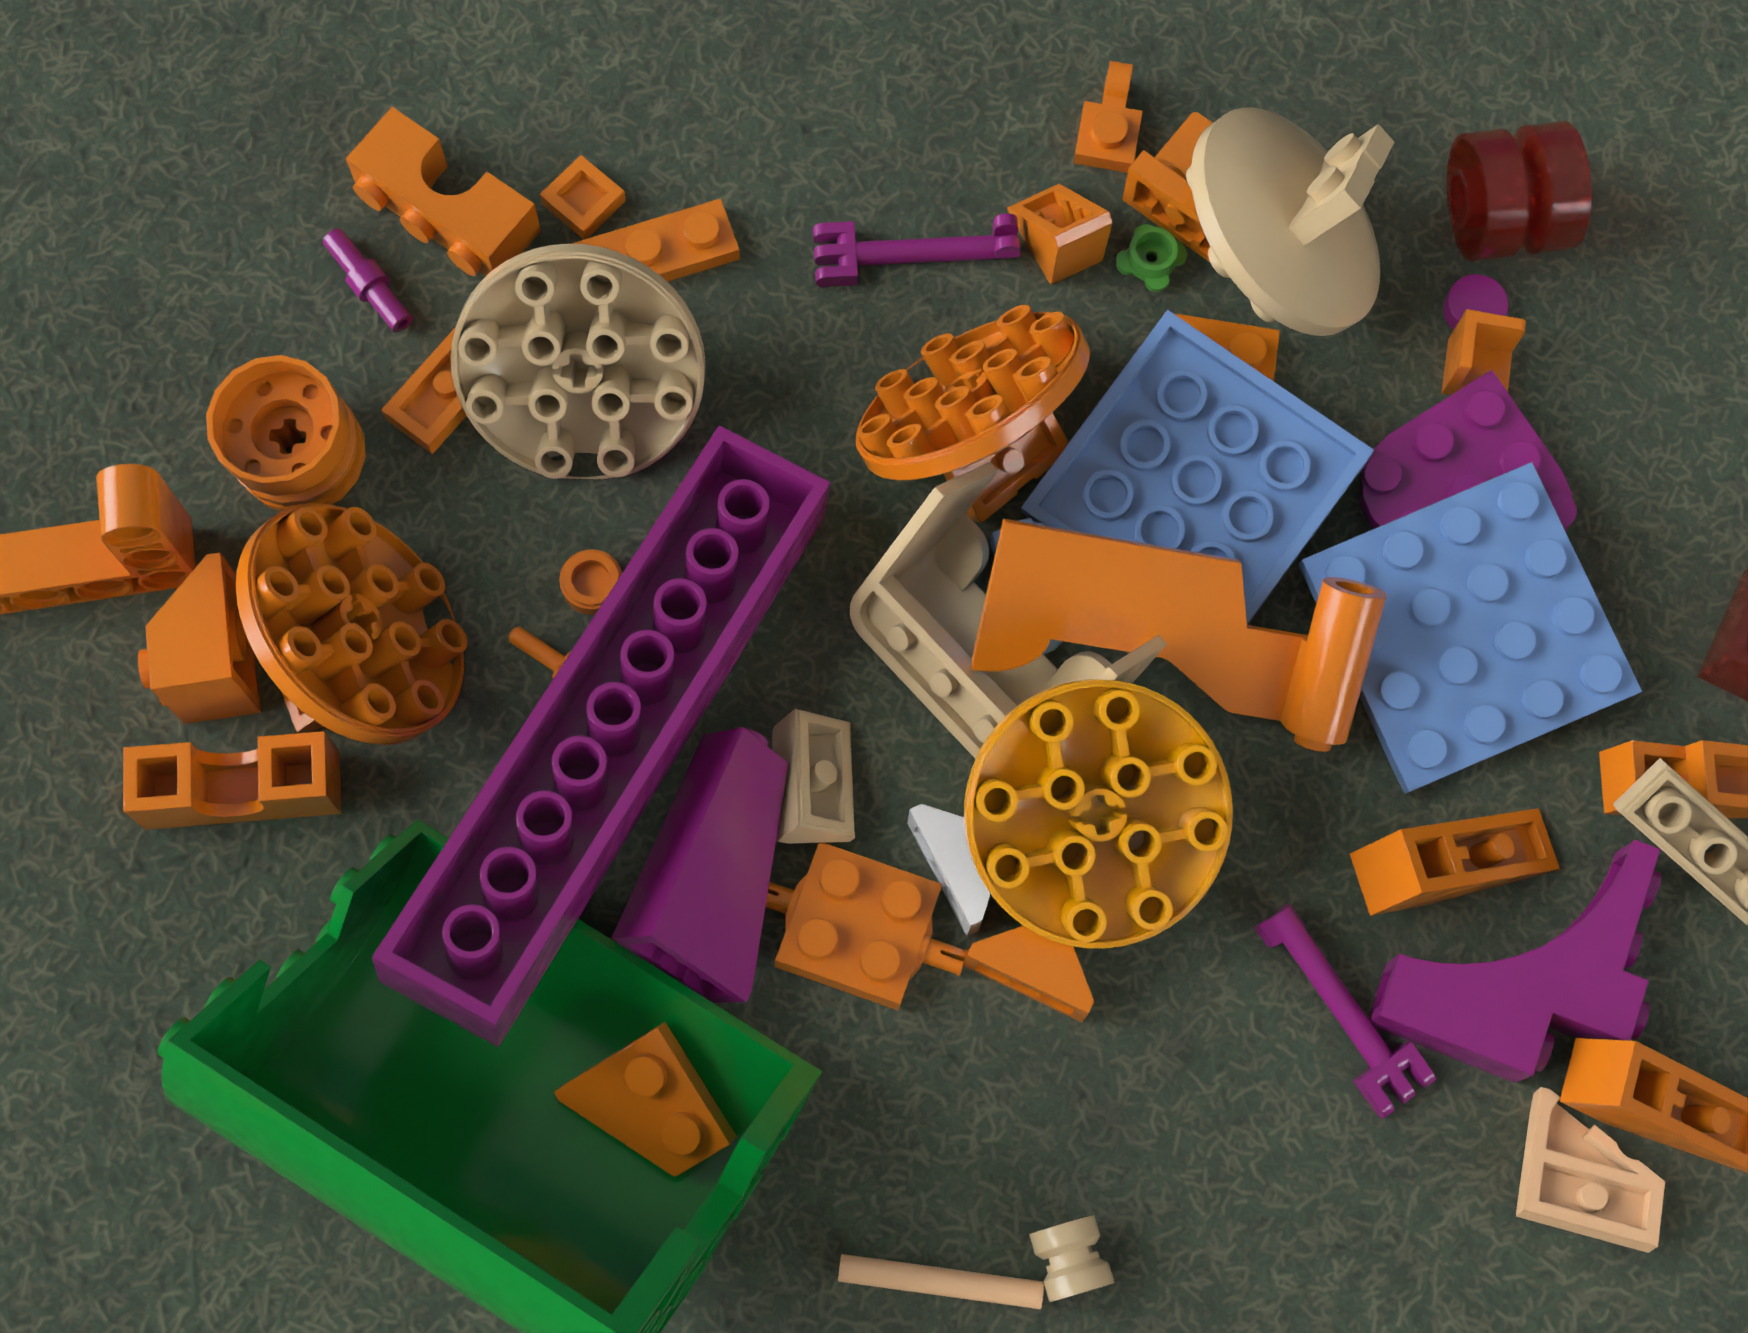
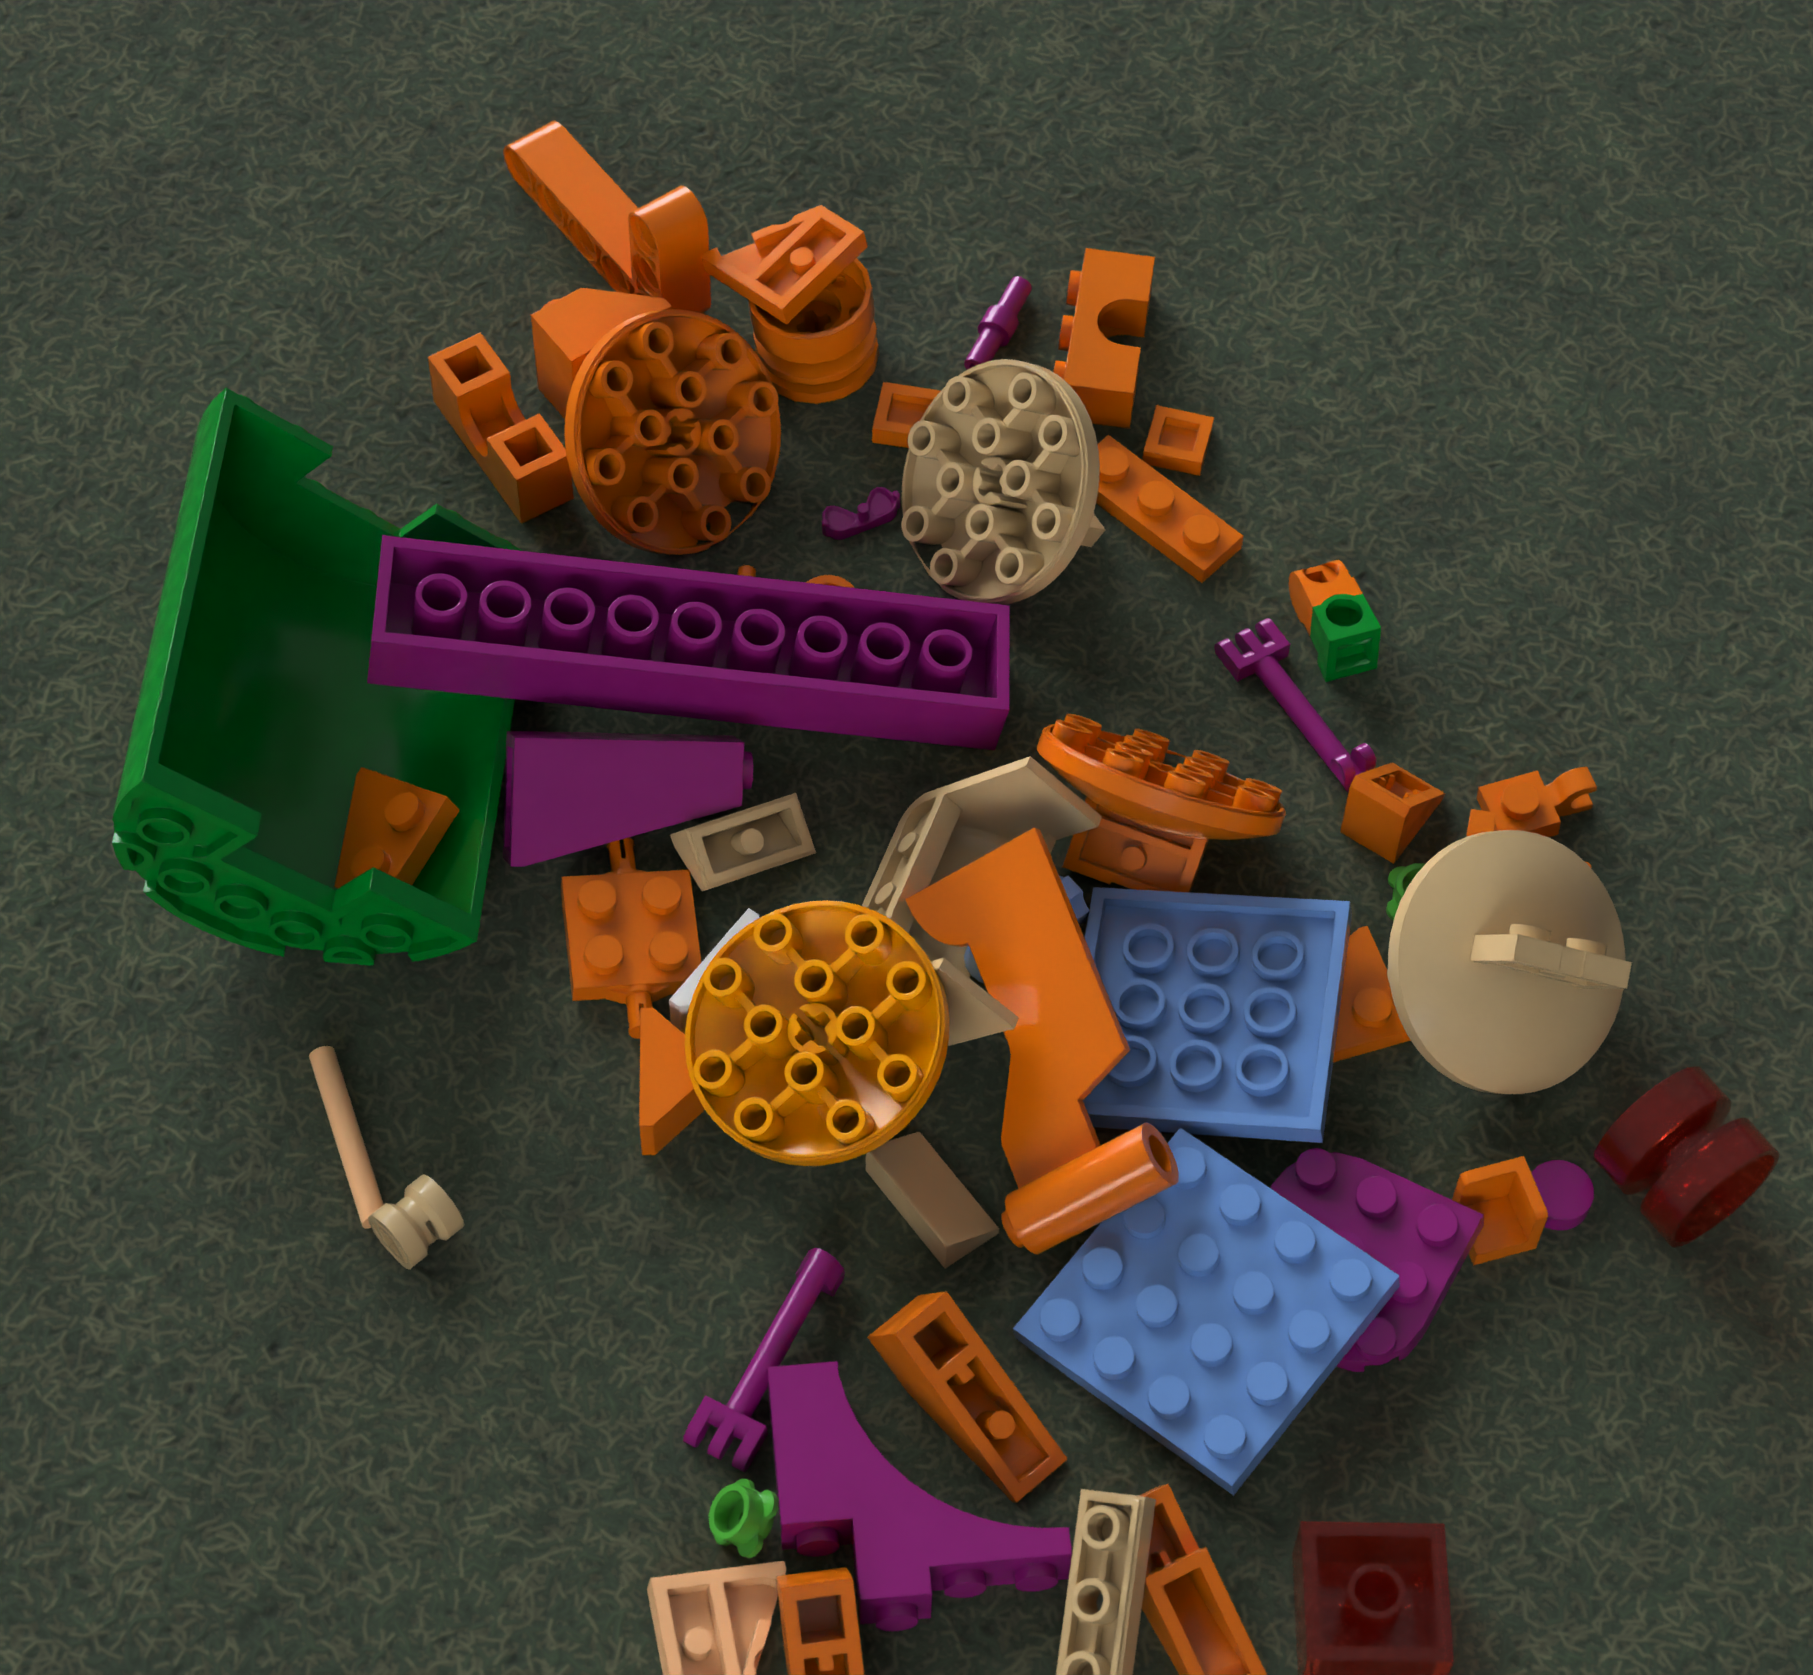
camera: 65 degrees right, 15 degrees down
(236, 420) = (789, 261): none -> orange wing
(508, 485) = (879, 509): none -> magenta piece
(847, 170) = (1336, 619): none -> green leg
(1272, 793) = (930, 1197): none -> tan slope
(1488, 1117) = (743, 1516): none -> bright green plate

